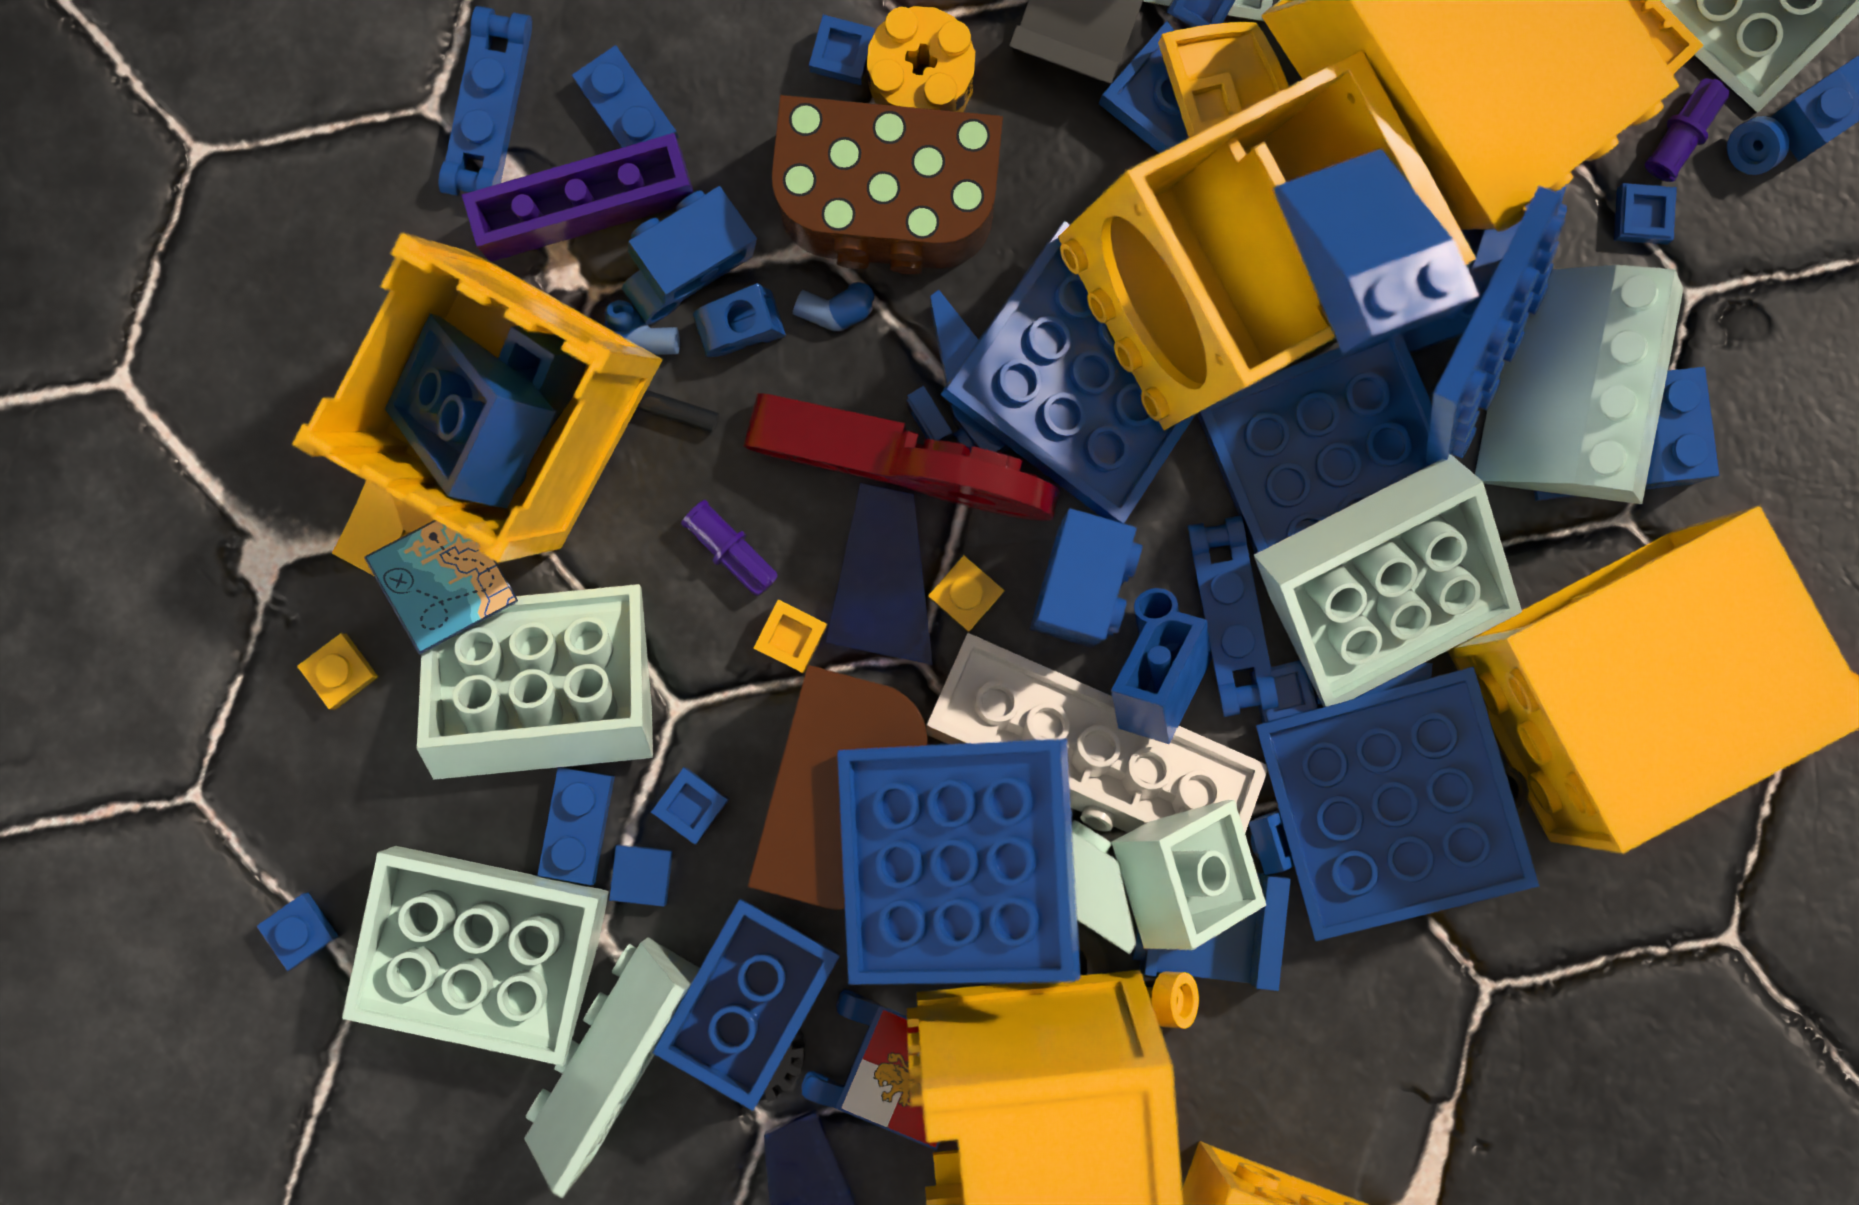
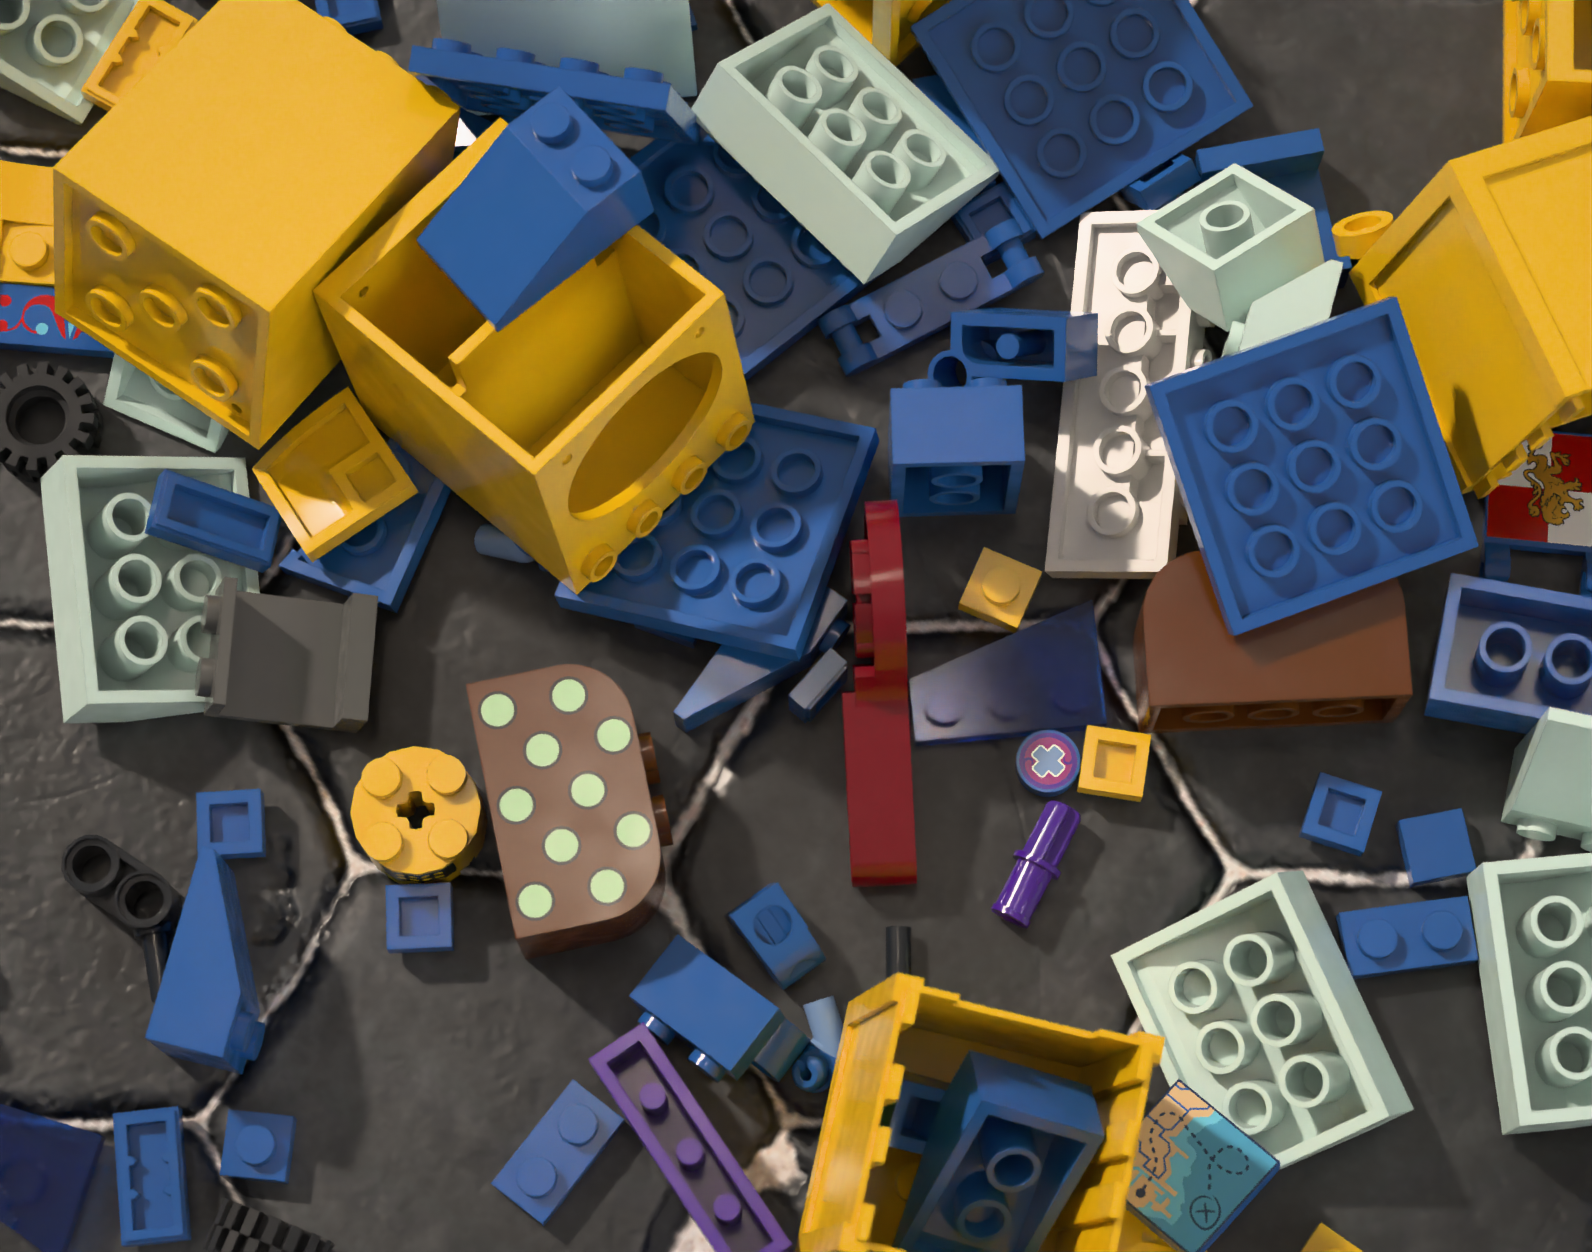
camera: 105 degrees left, 10 degrees down
(810, 584) = (1047, 763): none -> tile
(839, 311) = (727, 827): arm -> none

